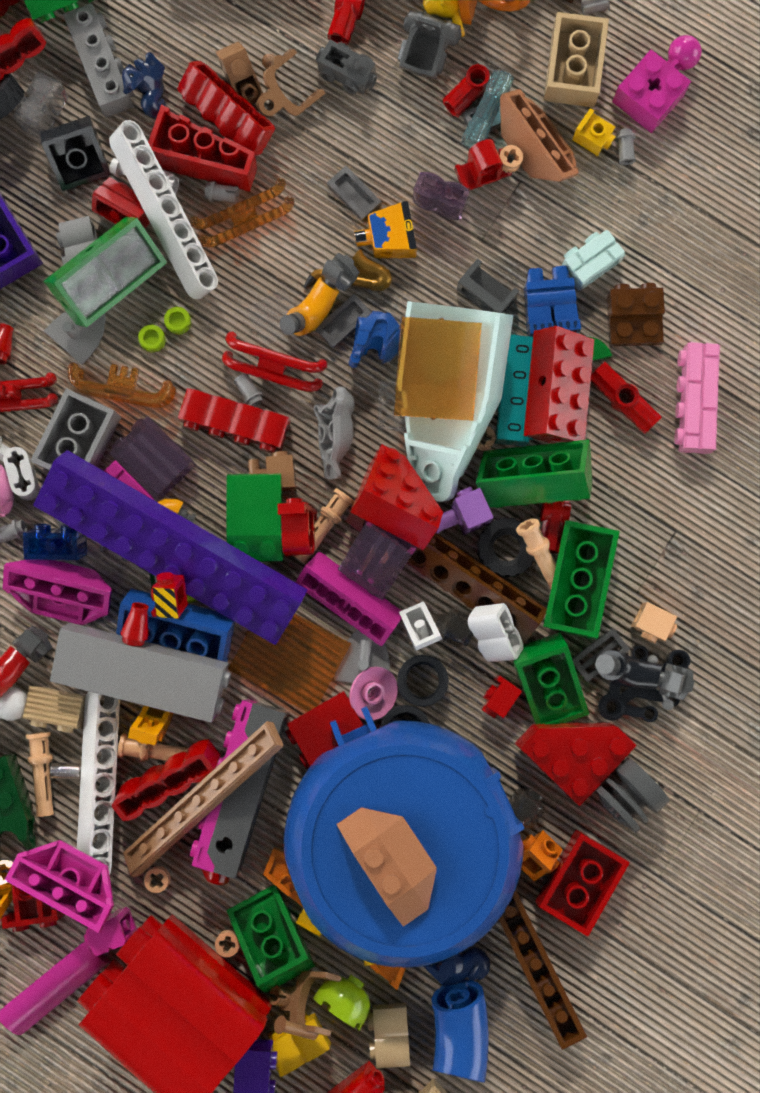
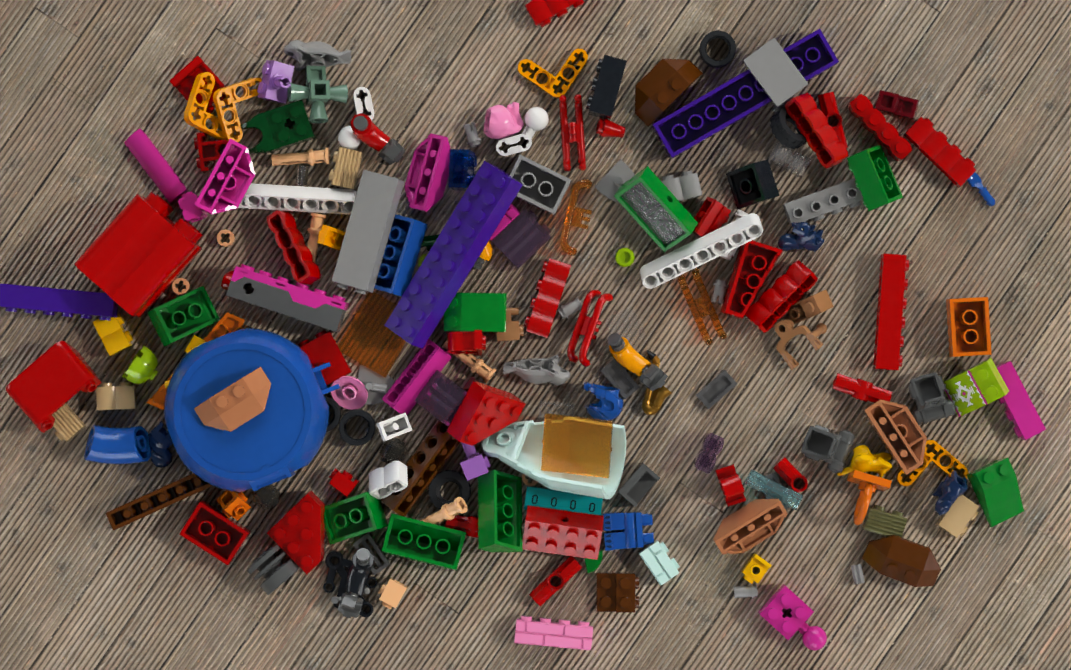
camera: 90 degrees right, 5 degrees up
(136, 625) = (397, 230): red cone -> none
(152, 338) = (612, 238): lime tile -> none
(169, 595) = (418, 254): brick -> none
(203, 798) = (279, 273): medium nougat tile -> none
(294, 1001) = (140, 331): medium nougat piece -> none
(355, 70) = (808, 392): dark grey brick -> none
(389, 233) = (684, 414): light orange torso -> none
(518, 158) = (729, 507): light nougat bush -> none
(576, 59) = (810, 556): tan brick -> none

